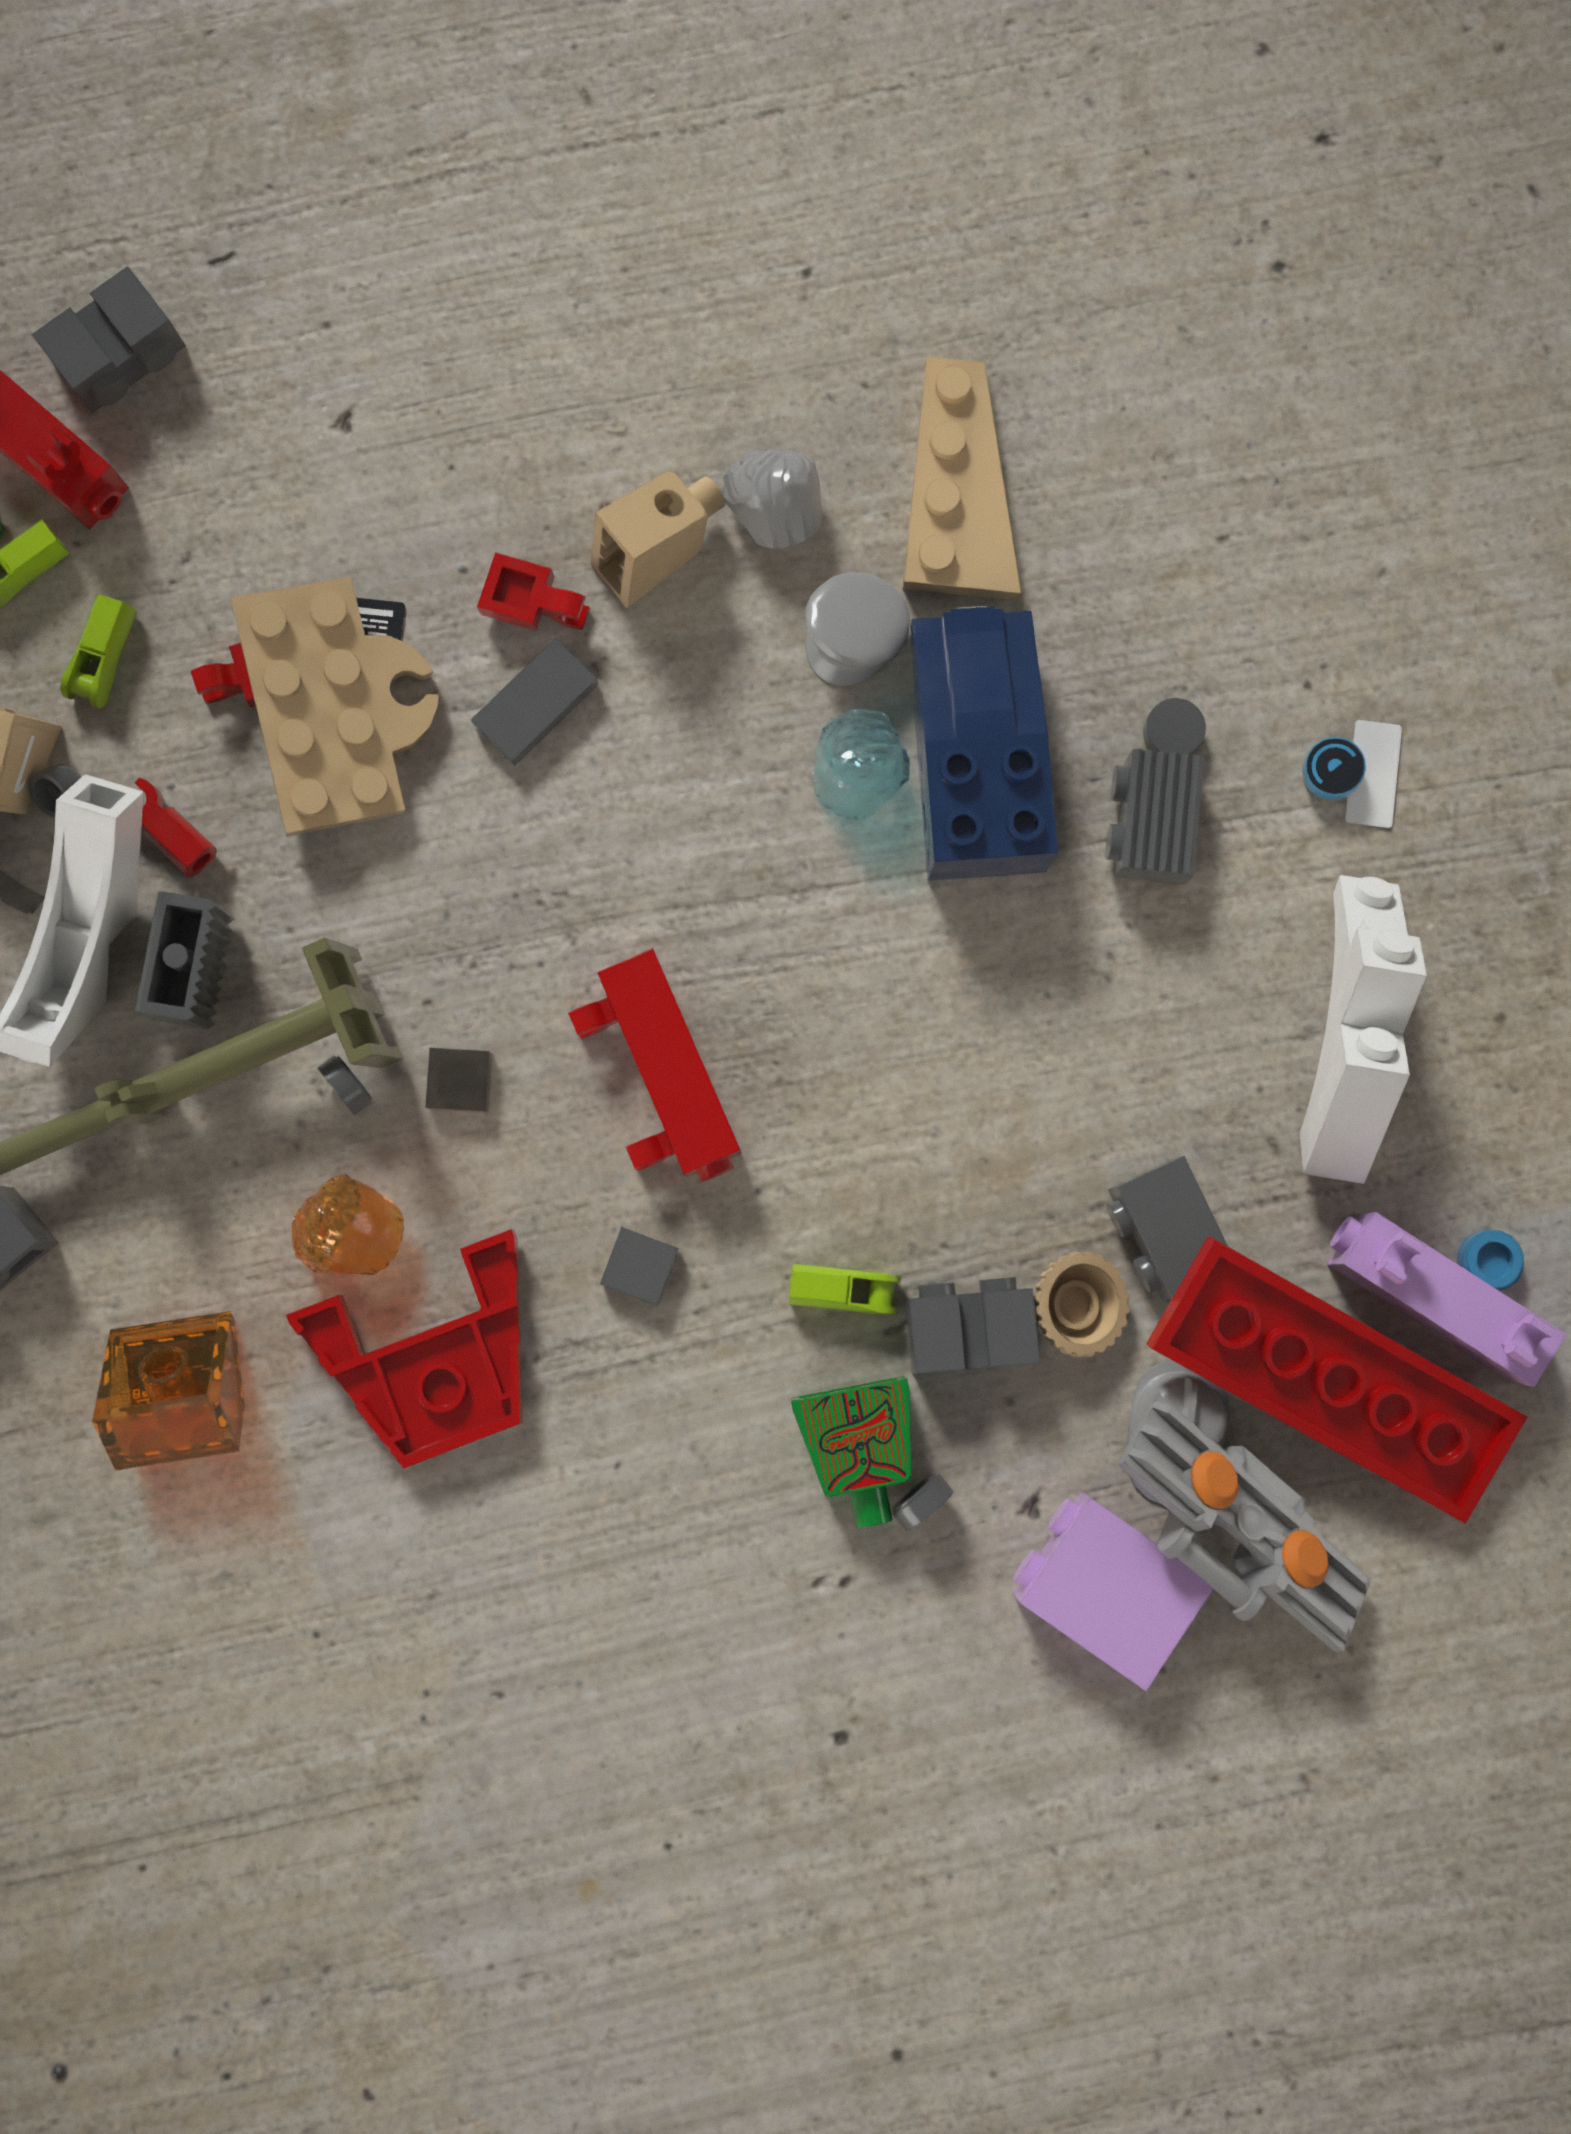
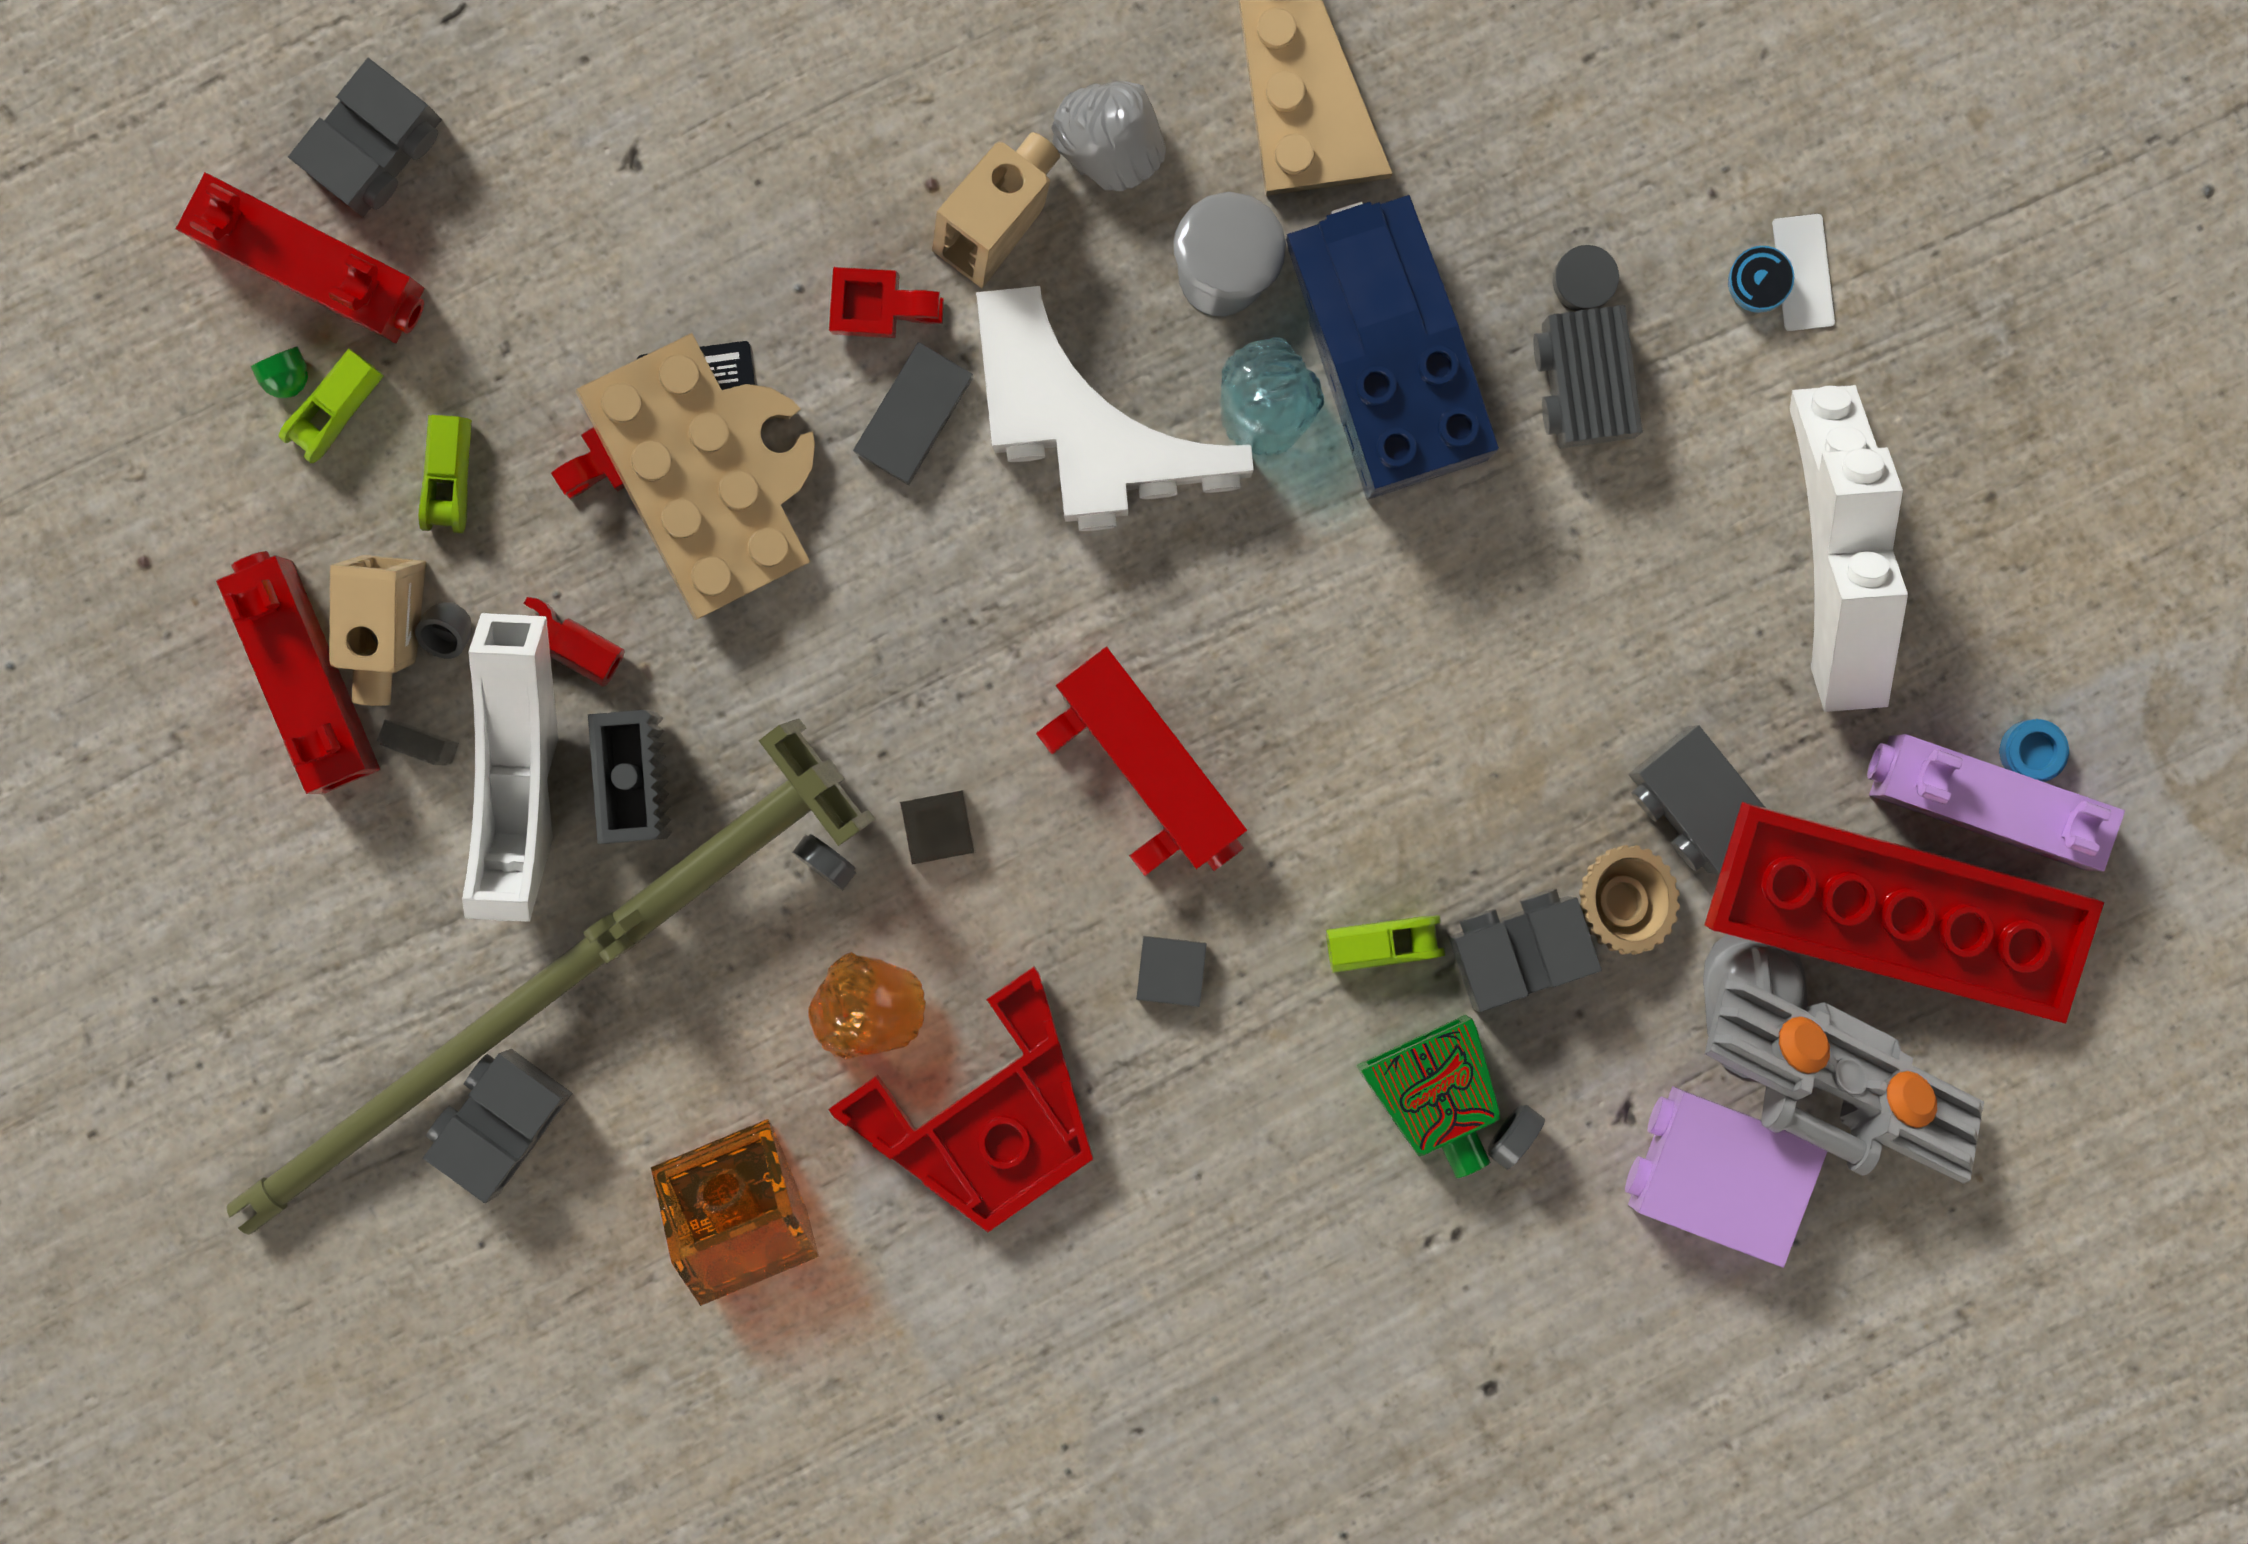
camera: 10 degrees left, 5 degrees up
(694, 775) = (1045, 403): none -> white arch

